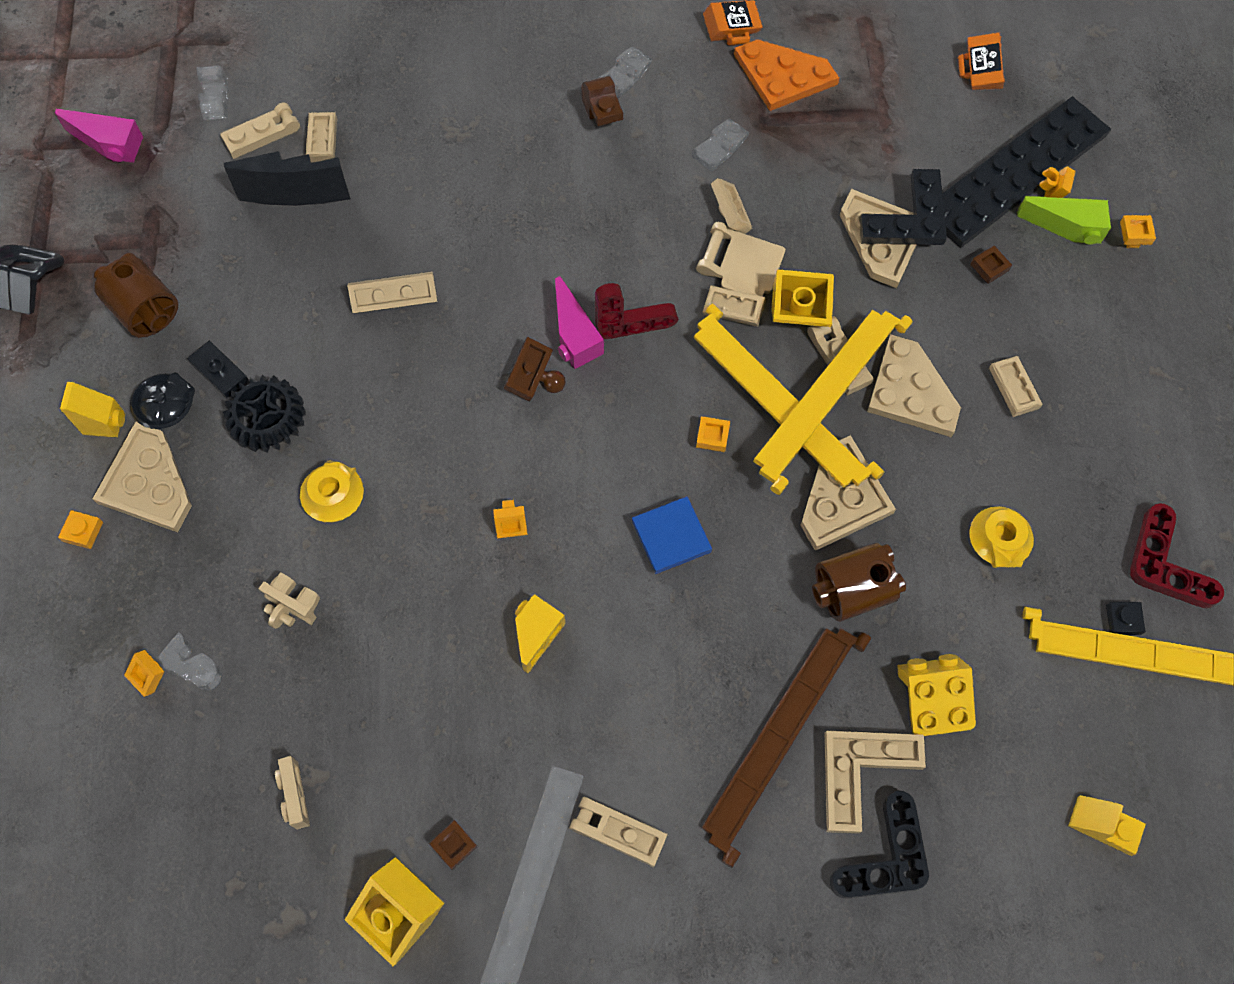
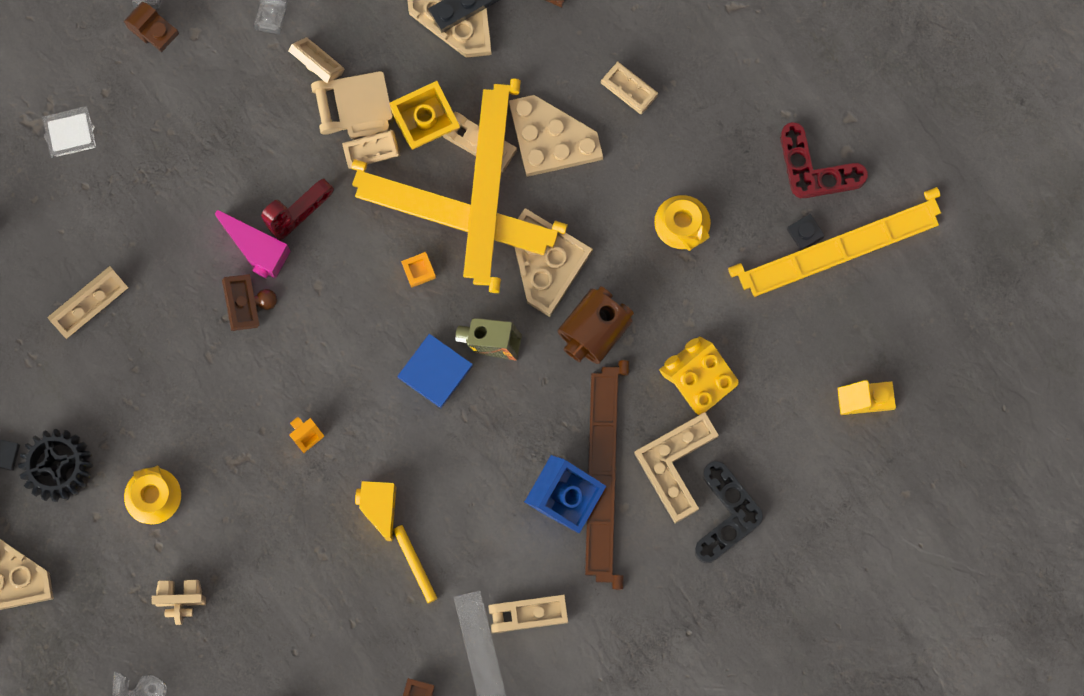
camera: 25 degrees left, 10 degrees up
(475, 151) = (69, 132): none -> clear piece
(535, 711) = (415, 564): none -> yellow bar
(730, 730) = (565, 493): none -> blue slope
(746, 535) = (491, 338): none -> olive torso

